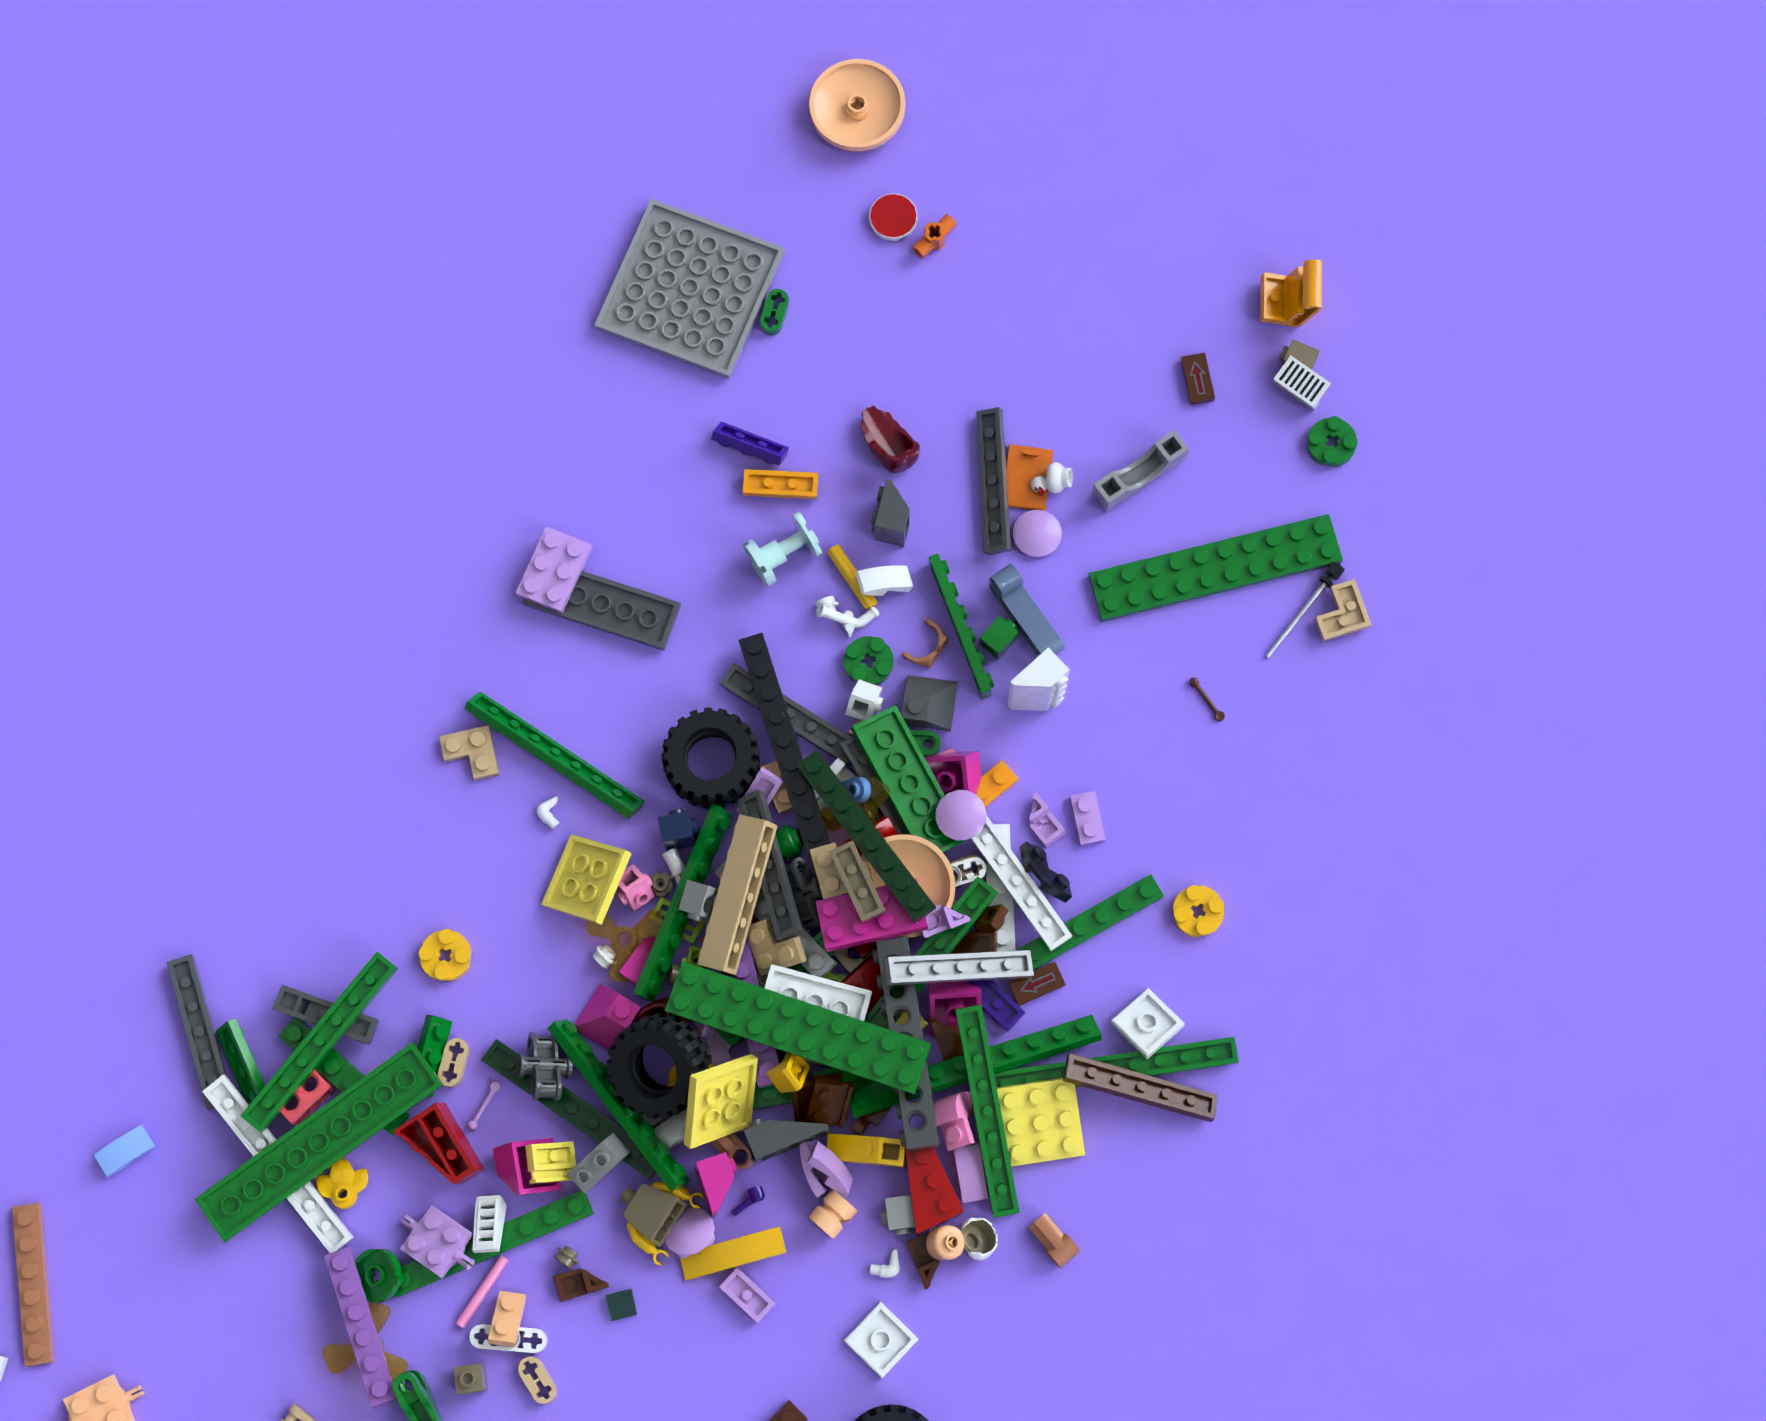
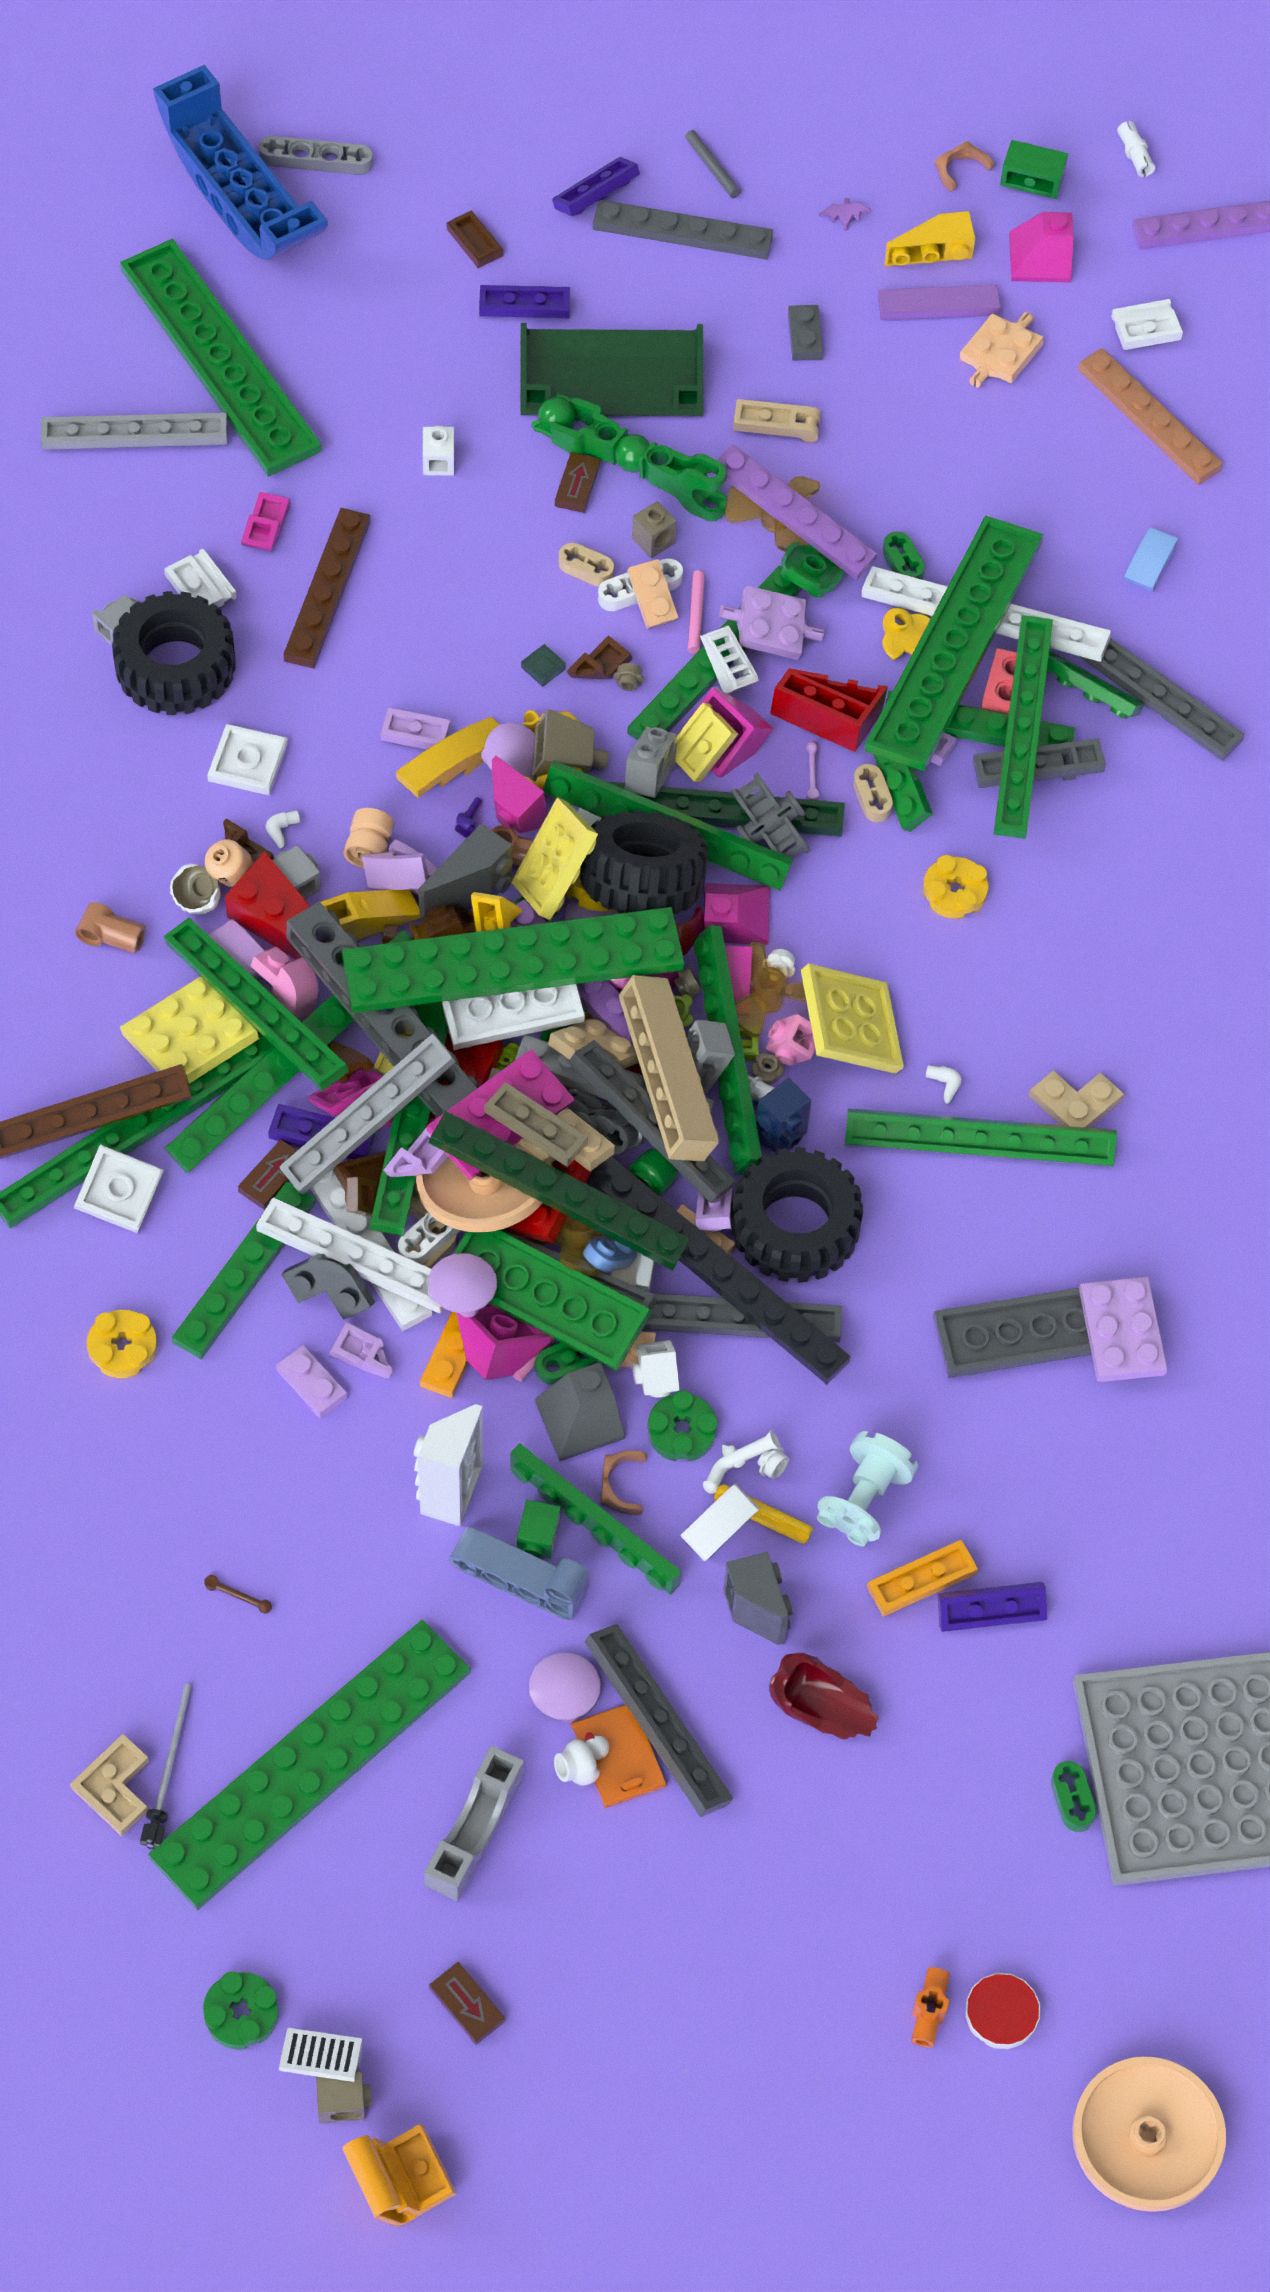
camera: 145 degrees right, 15 degrees down
(308, 1254) = (909, 555): none -> green beam

